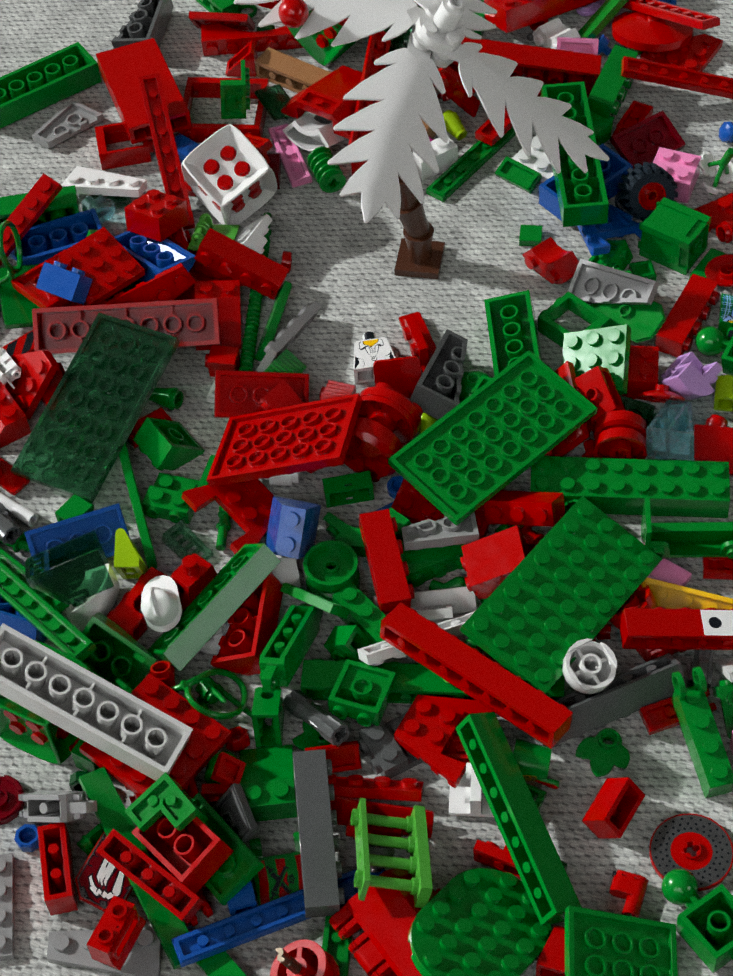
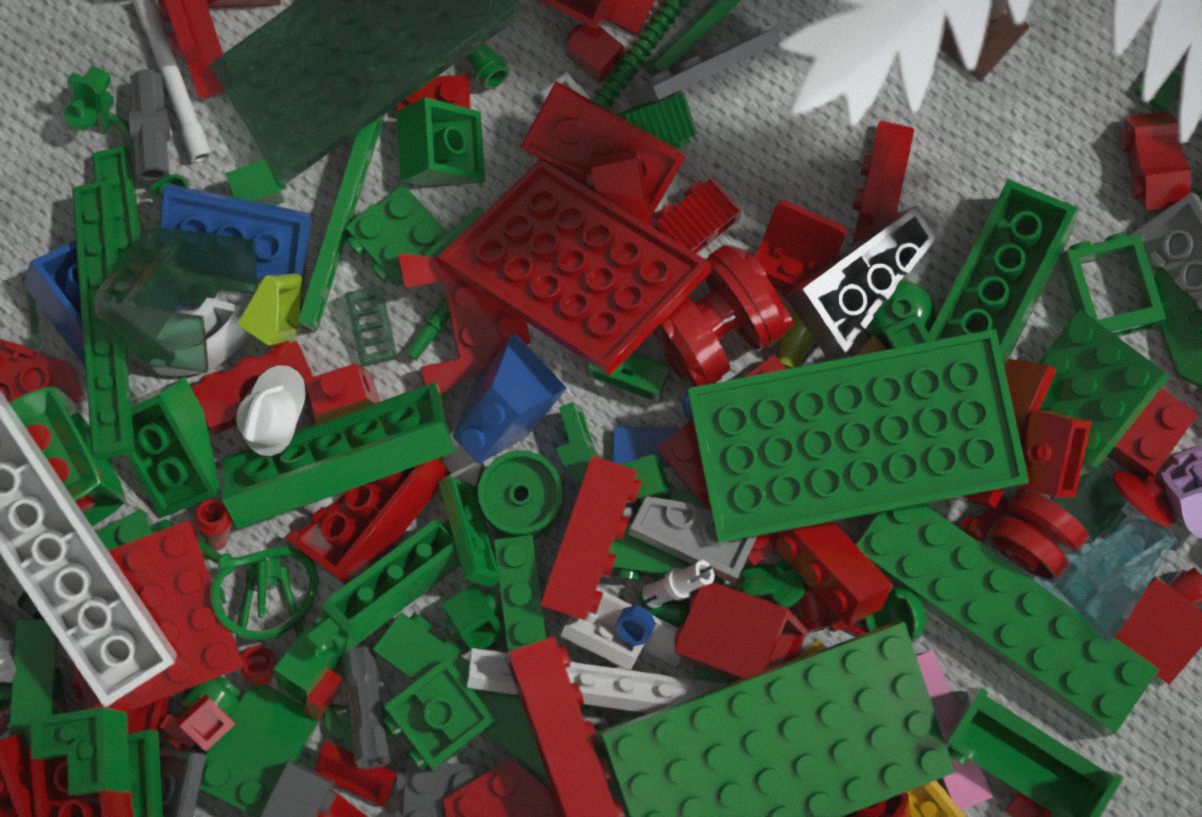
camera: 30 degrees right, 25 degrees up
(286, 728) = (323, 695): none -> red tile
(366, 353) = (797, 171): white torso -> none
(439, 594) = (635, 625): none -> blue tile
(449, 558) = (678, 584): none -> white pin

